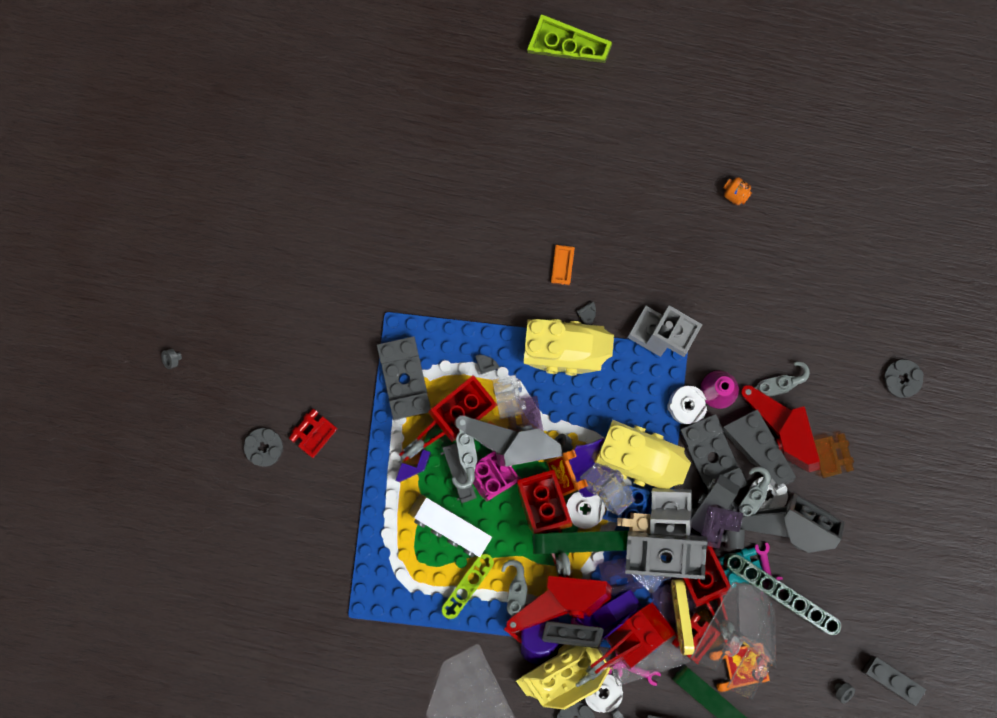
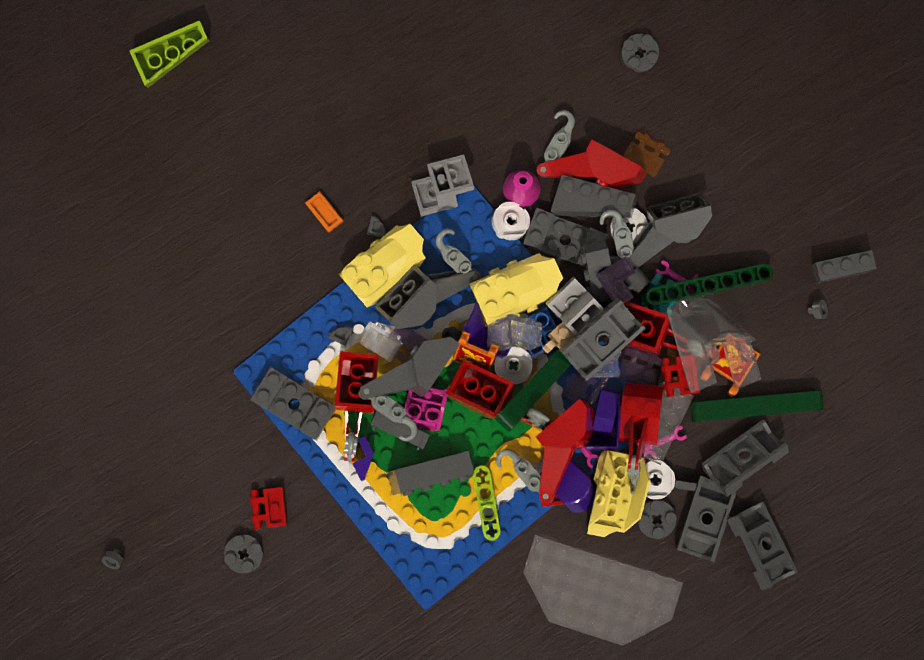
camera: 45 degrees left, 0 degrees up
(567, 390) = (416, 294): none -> dark grey slope
(572, 634) = (593, 460): dark grey tile -> none
(682, 616) = (656, 370): light yellow beam -> none
(737, 191) = (393, 37): orange head -> none

